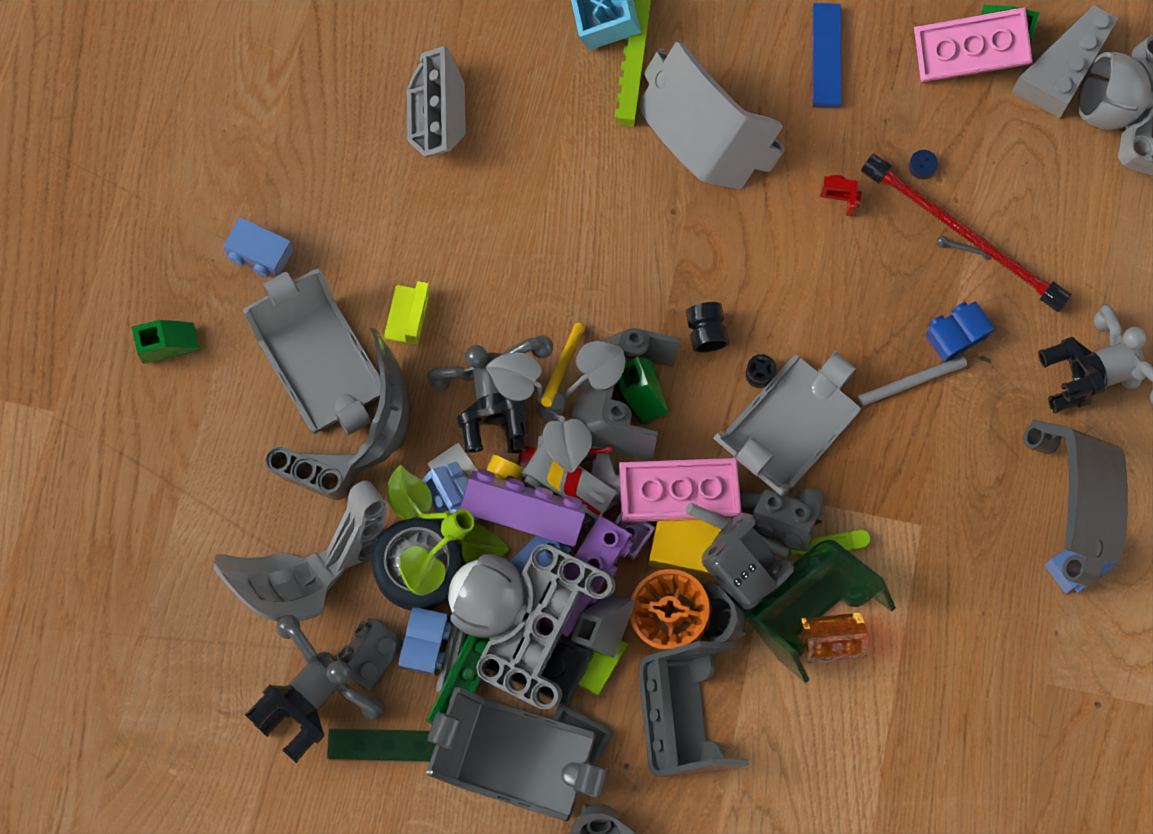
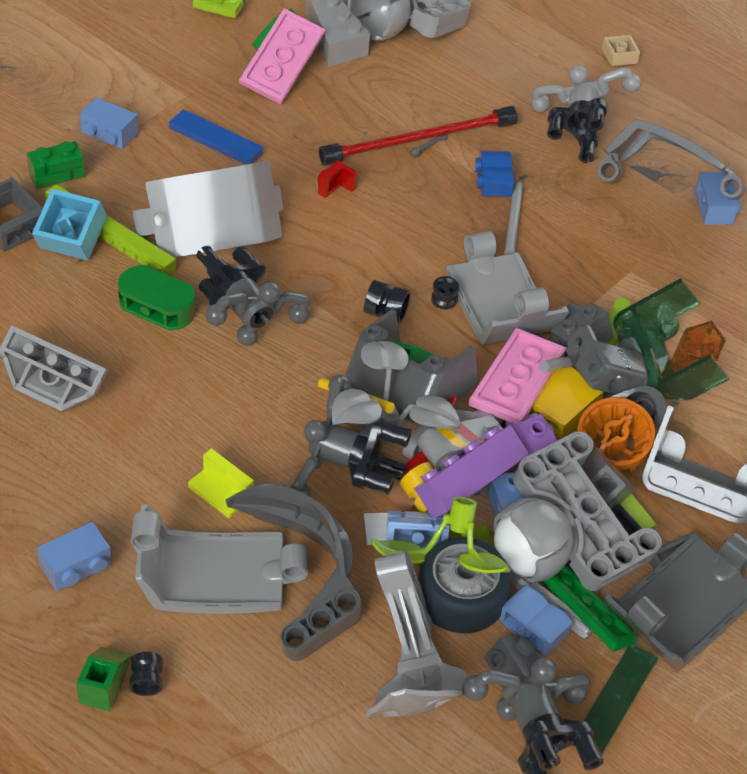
camera: 60 degrees left, 25 degrees down
(186, 370) = (146, 672): none -> black wheel
(580, 133) = (156, 297): none -> green brick
(614, 204) = (238, 289): none -> wheel
(923, 164) = (347, 132): dark blue tile -> none

